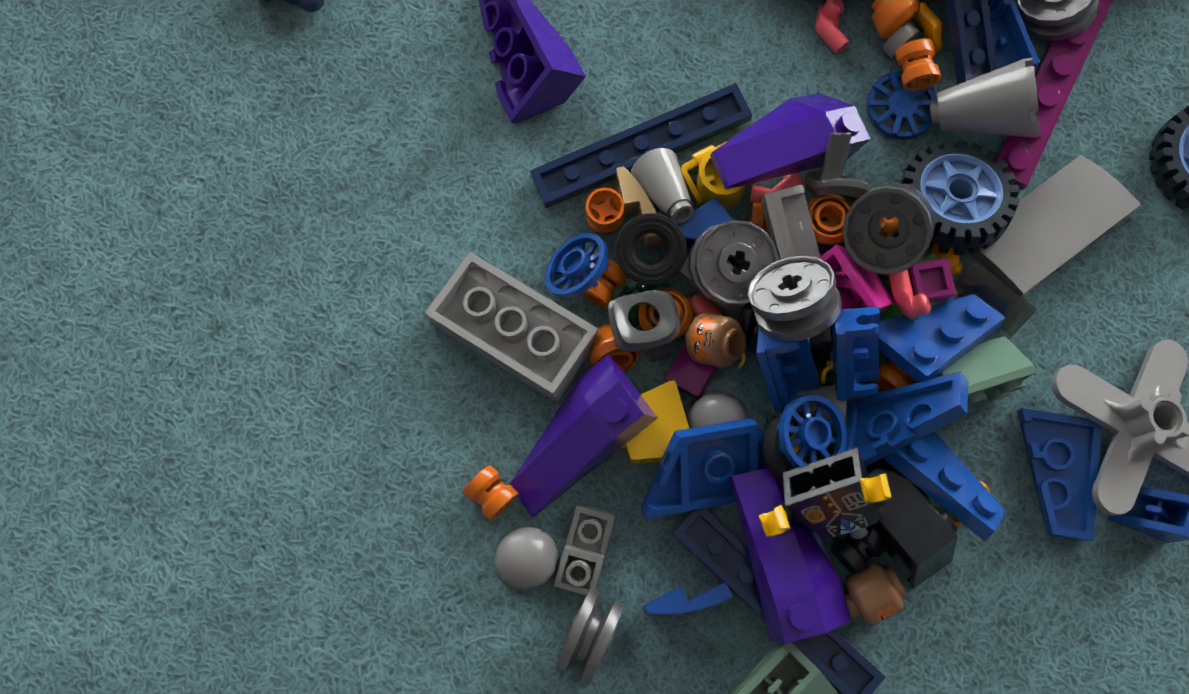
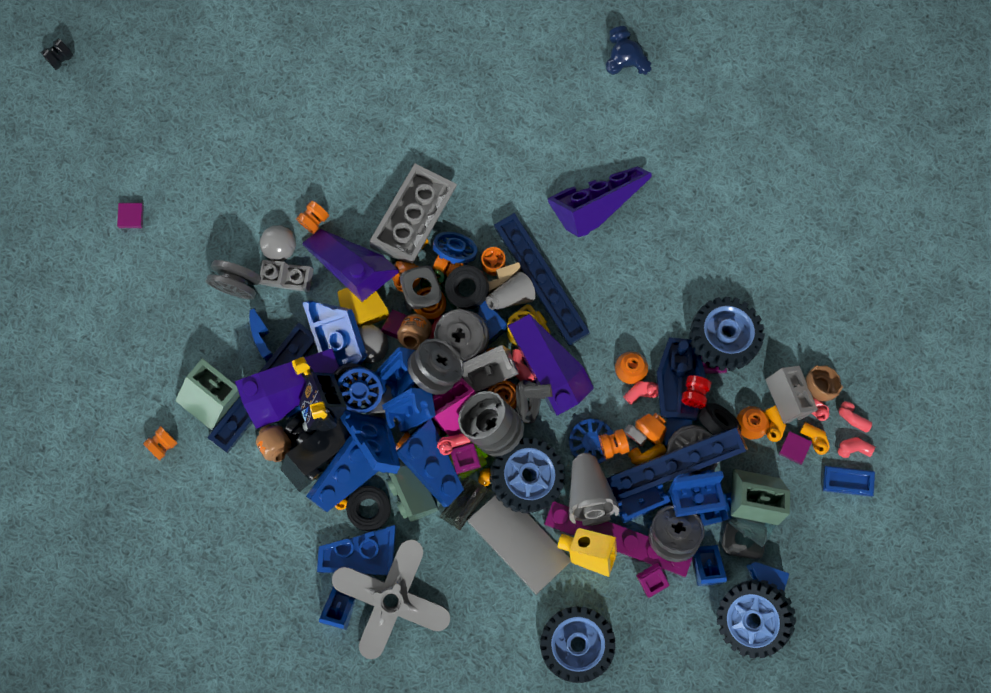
camera: 85 degrees right, 0 degrees up
(792, 35) = (624, 365): none -> orange cone
(1005, 432) = (362, 494): none -> black tyre
(1079, 116) = (590, 550): none -> yellow torso
(1117, 44) = (652, 580): none -> magenta tile

